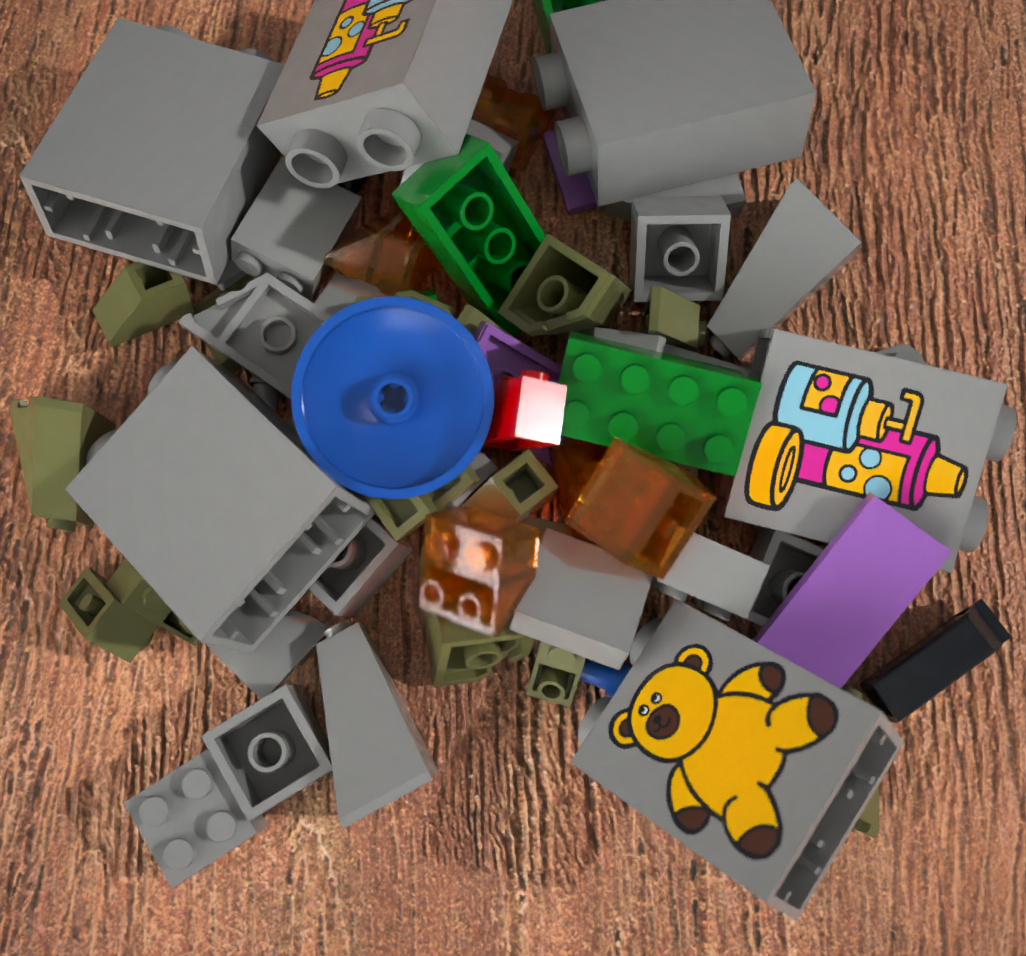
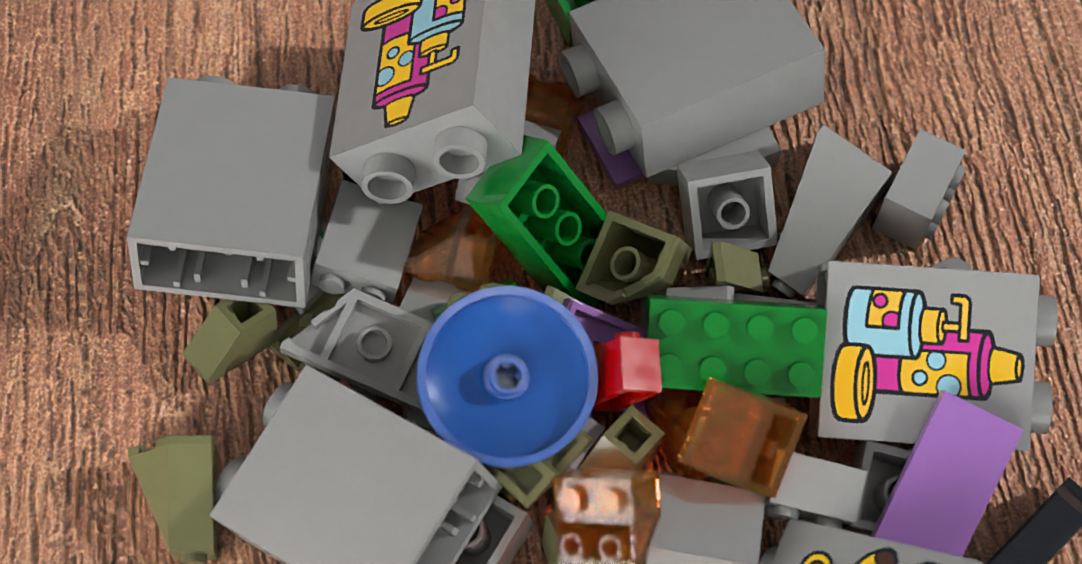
camera: 15 degrees left, 10 degrees down
(887, 266) = (921, 190): none -> light grey brick

